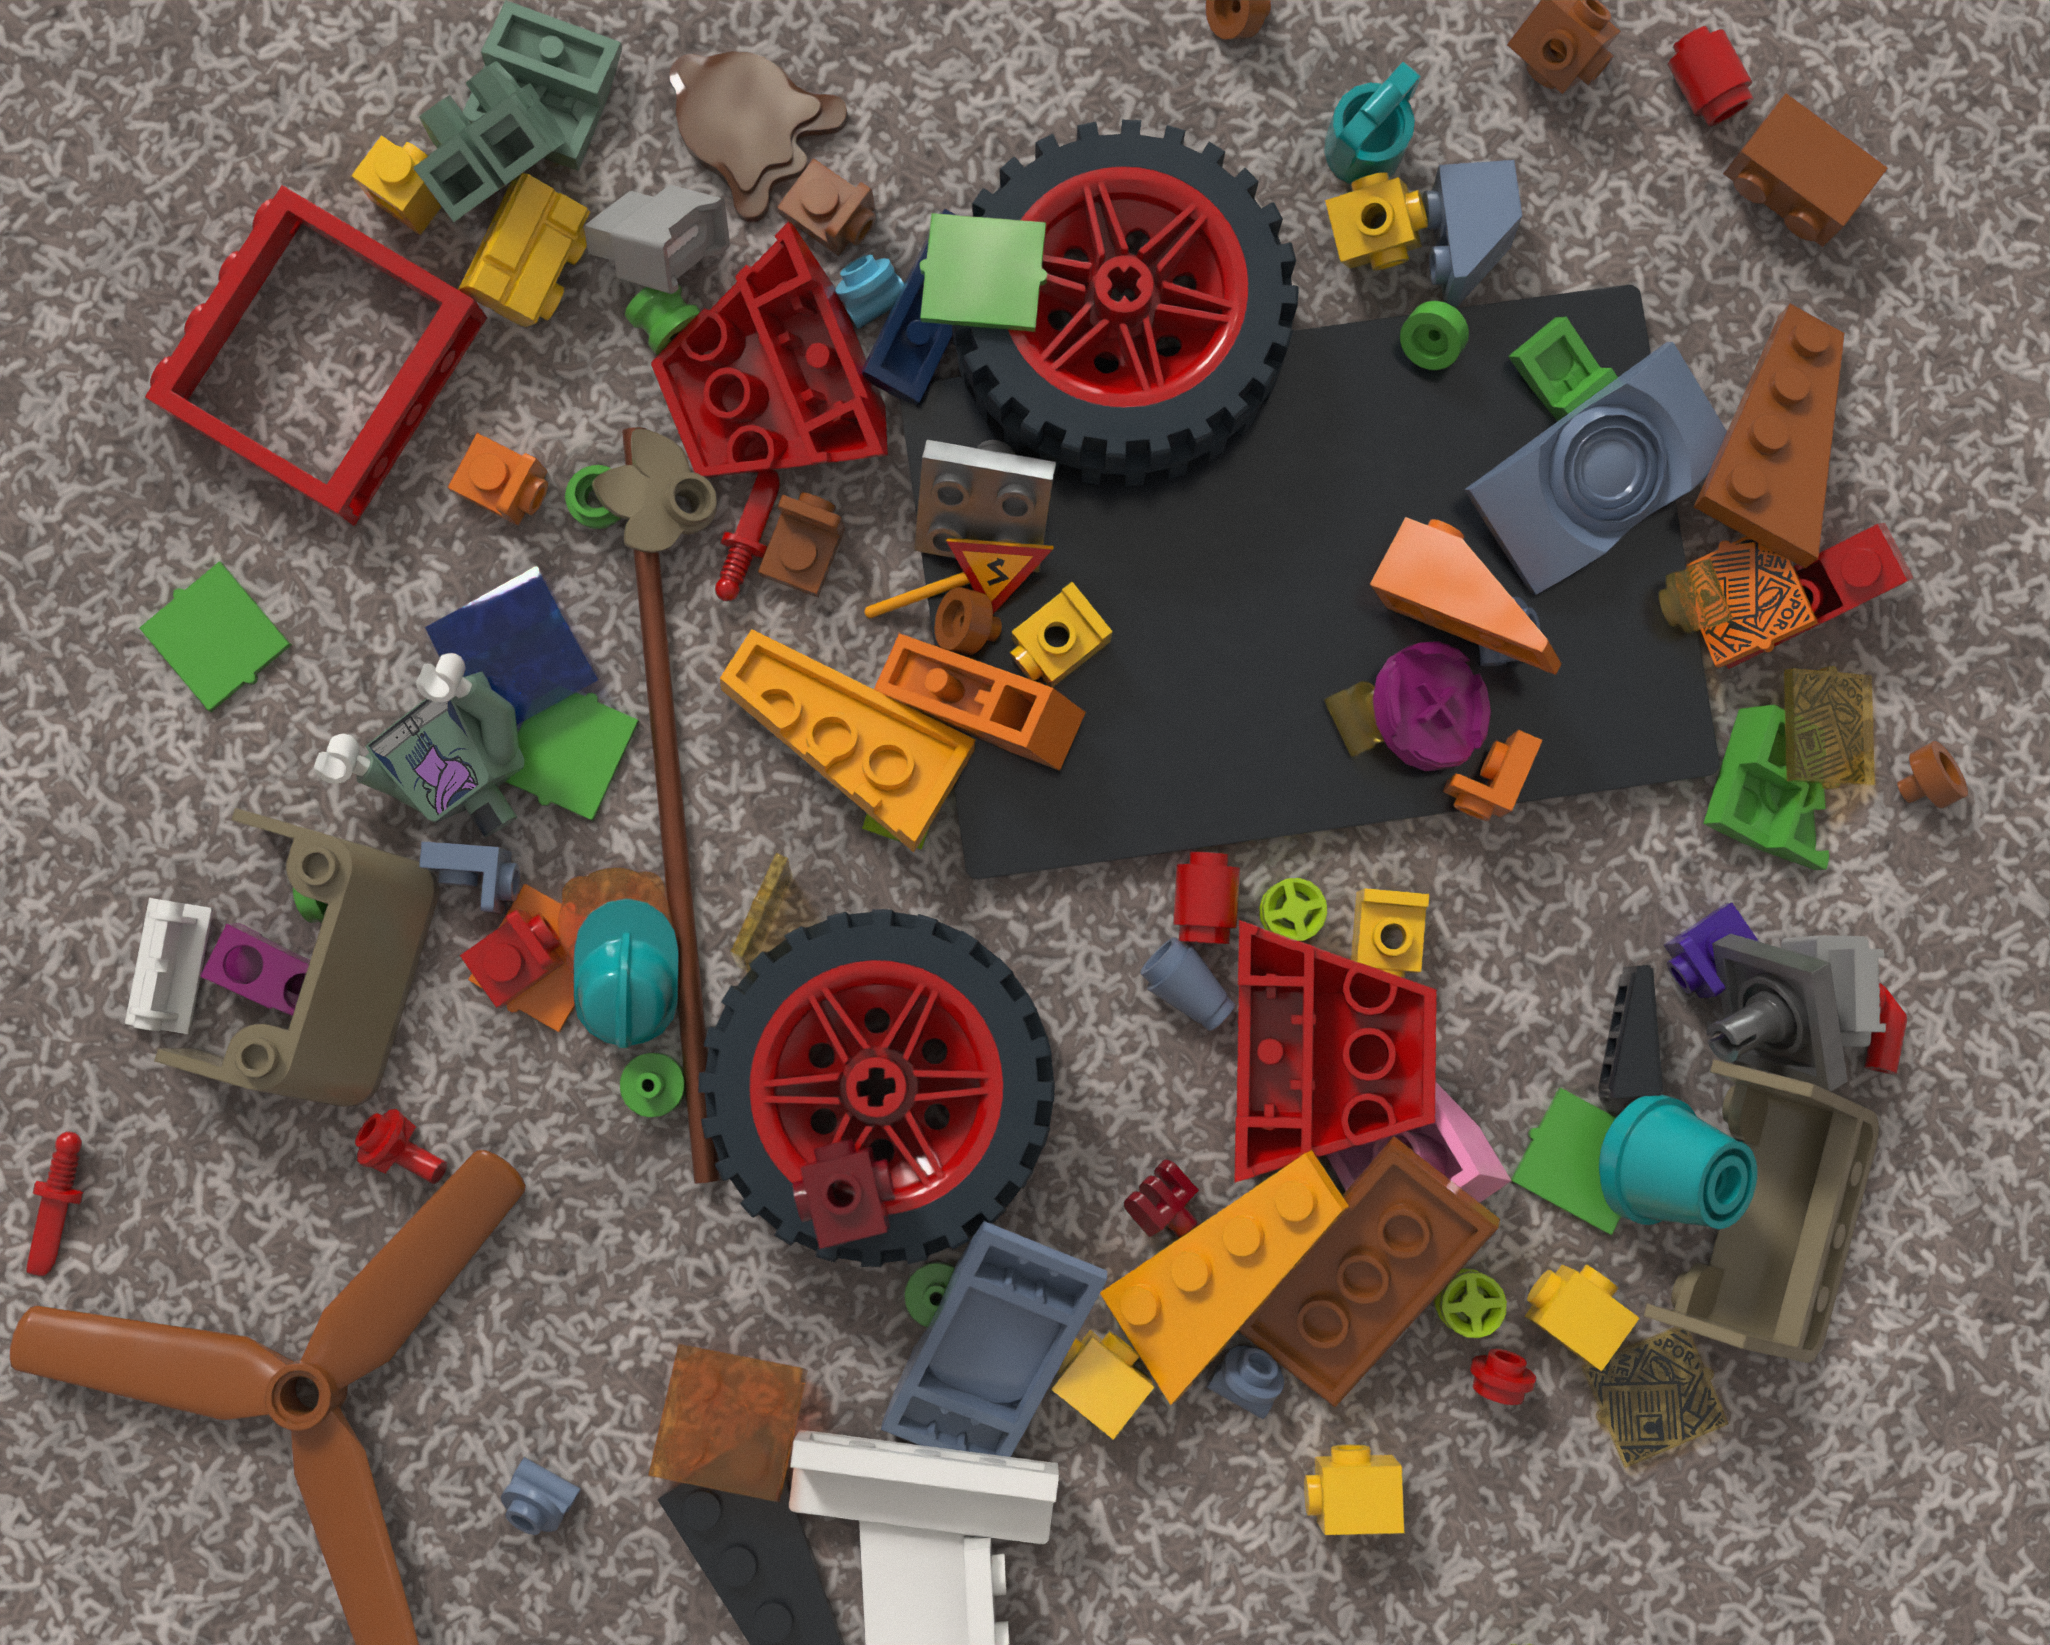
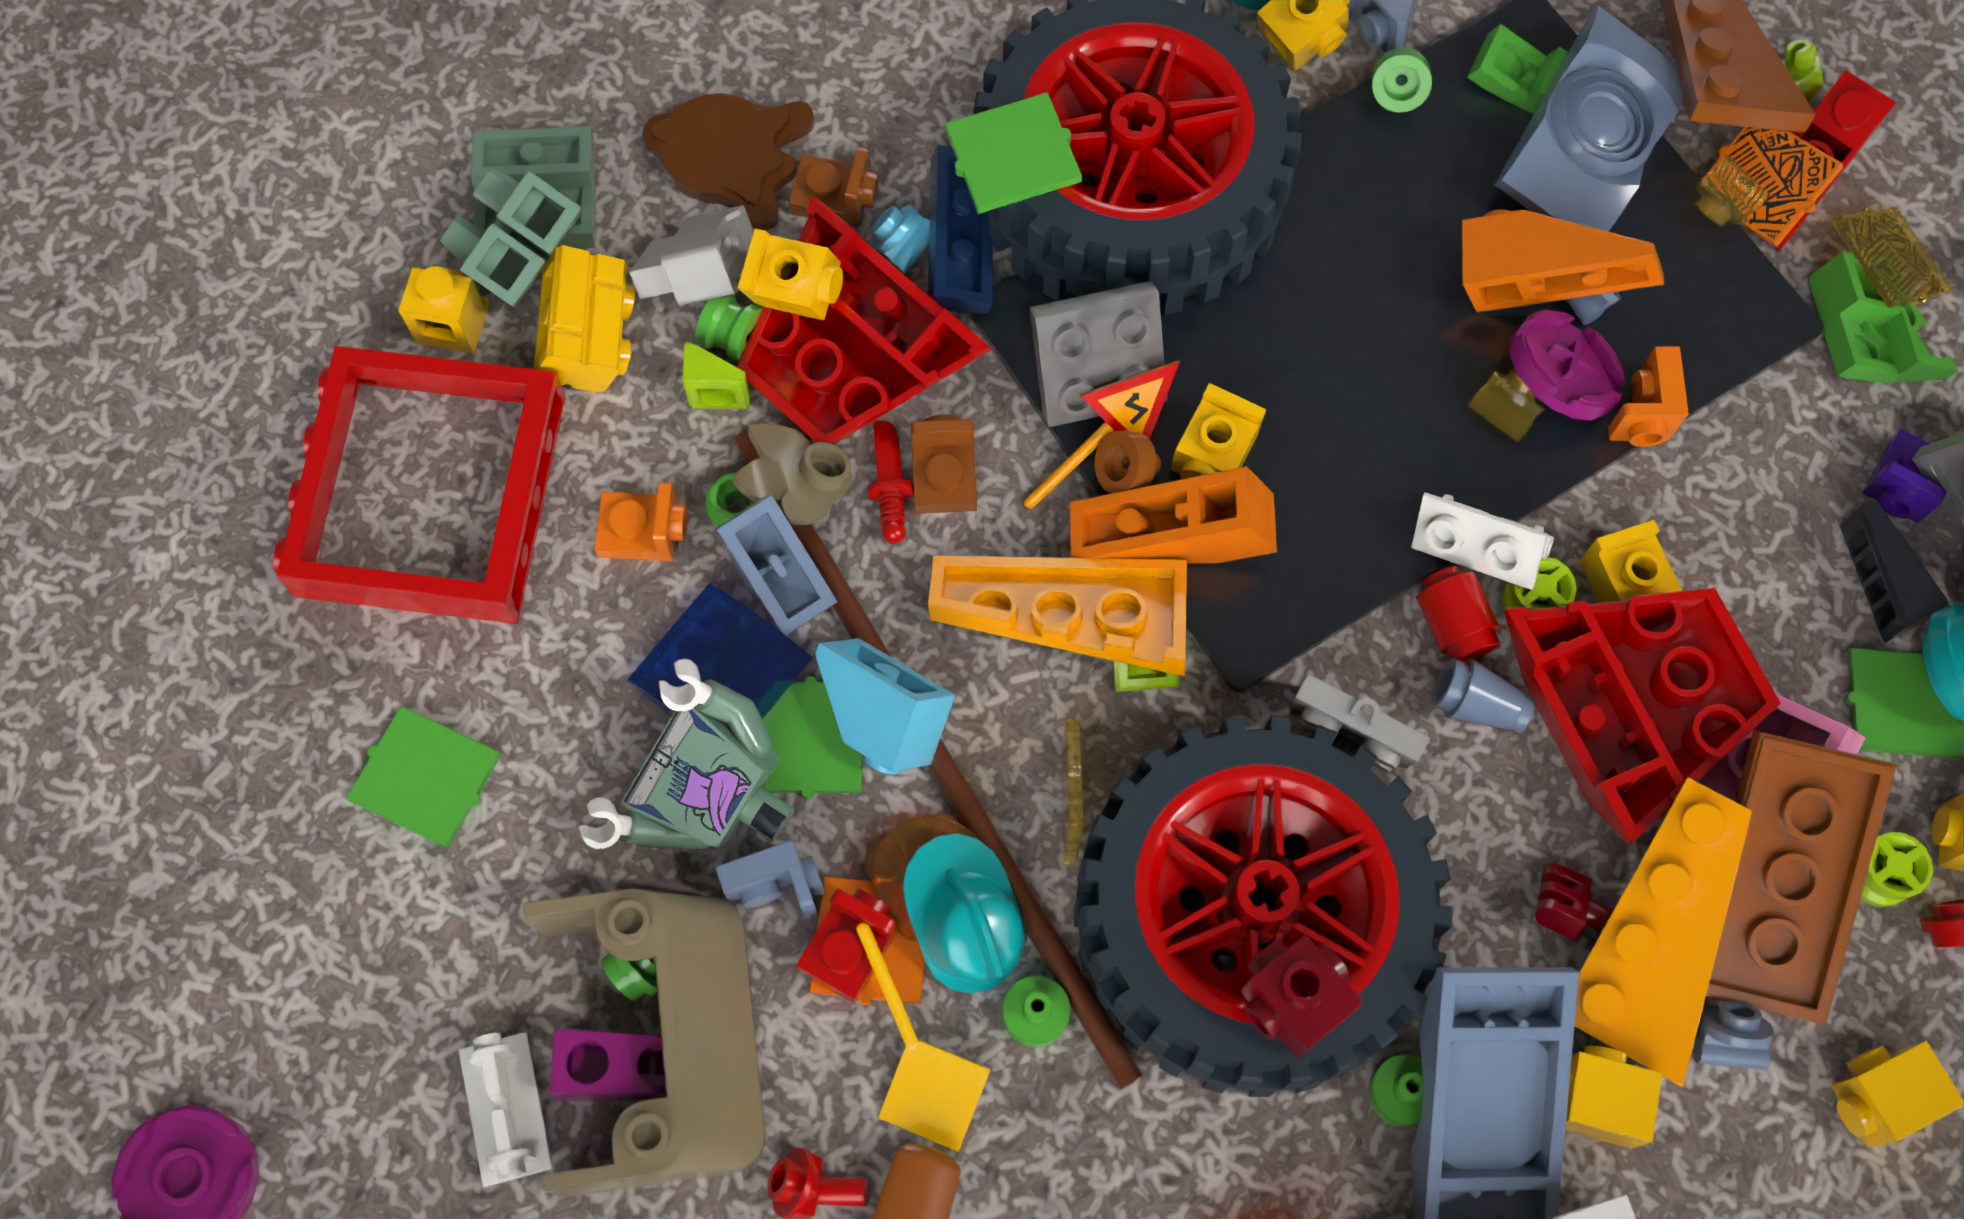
camera: 25 degrees left, 15 degrees down
(532, 1107) = (932, 1088): none -> yellow piece
(596, 581) = (775, 565): none -> sand blue slope
(618, 365) = (712, 381): none -> lime slope
(635, 753) = (883, 705): none -> medium azure slope
(708, 287) = (767, 273): none -> yellow brick
(1033, 944) = (1379, 733): none -> light grey plate
(1241, 822) = (1481, 540): none -> white hinge
(1856, 495) = (1804, 67): none -> lime arm

